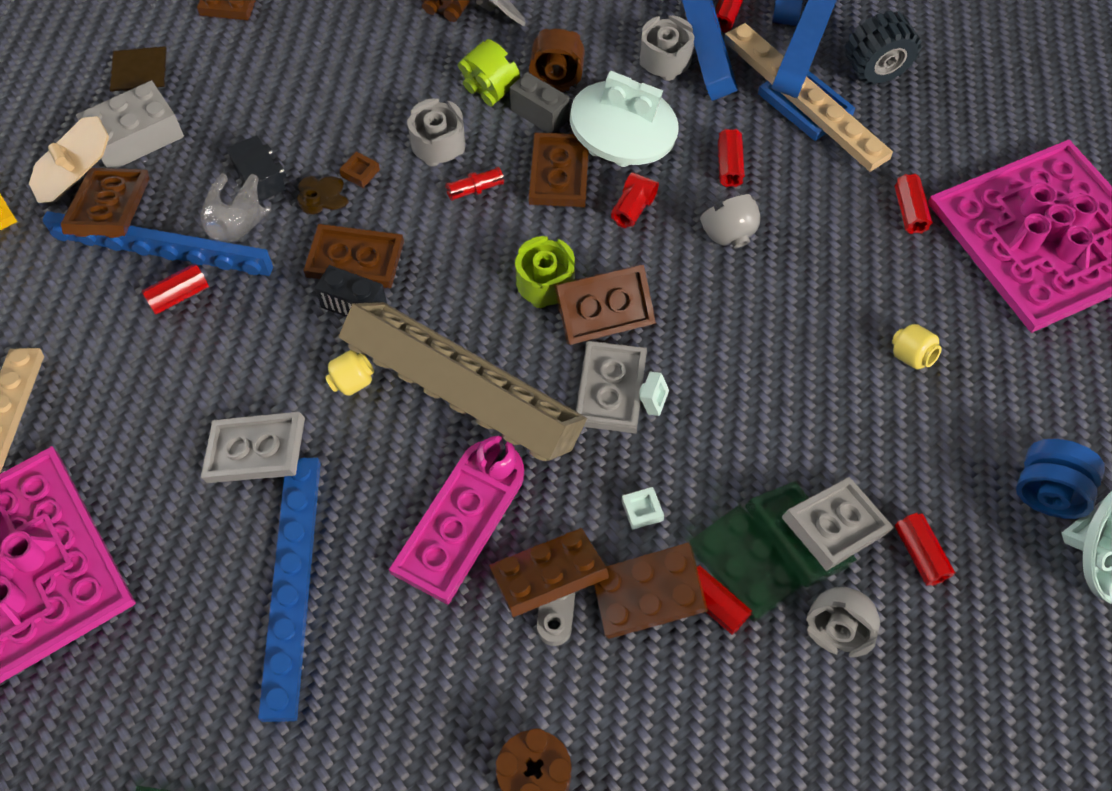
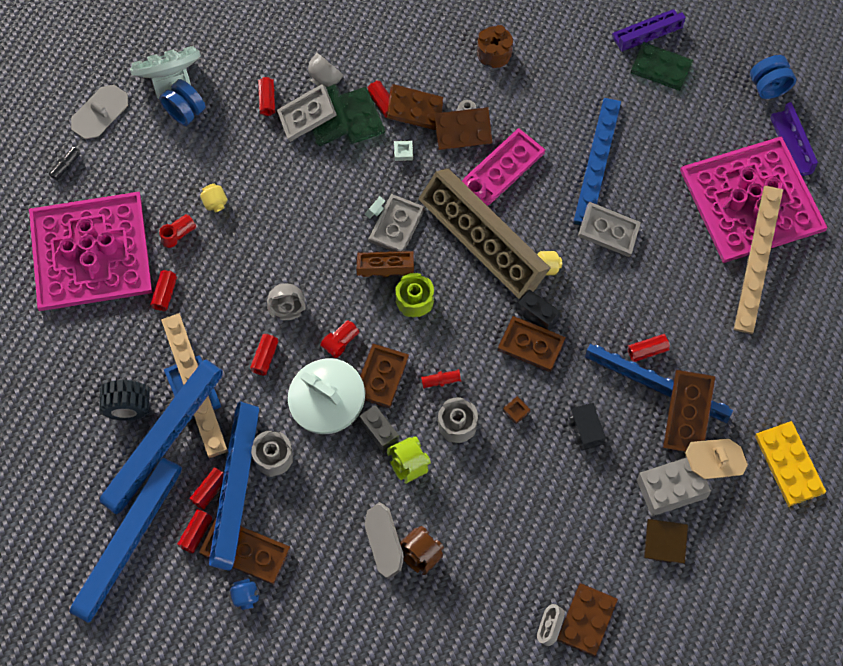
camera: 165 degrees left, 5 degrees up
(232, 221) = (605, 381): clear hair -> none
(320, 194) = (543, 401): dark brown plate -> none
(557, 58) = (356, 457): reddish brown brick -> none
(944, 285) = (177, 230): none -> red piece

